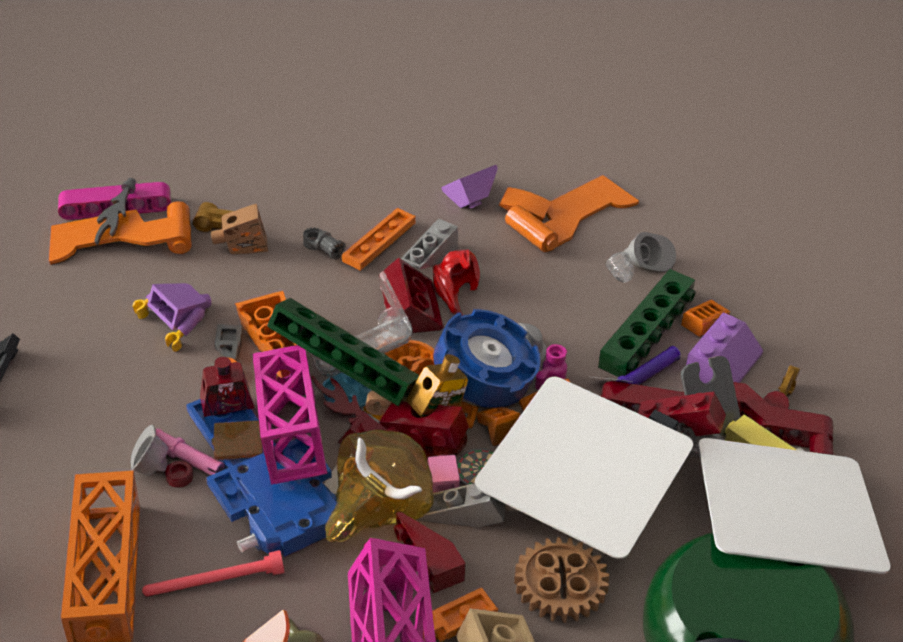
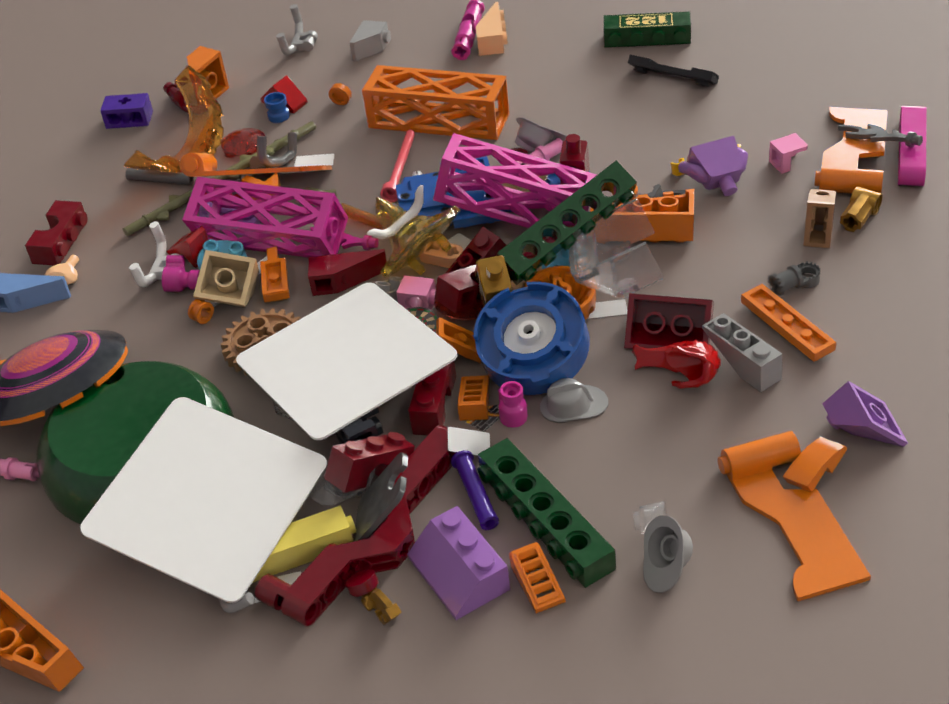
camera: 120 degrees right, 0 degrees up
(142, 269) = (783, 149): none -> bright pink panel
(325, 574) = (362, 216): none -> clear orange piece

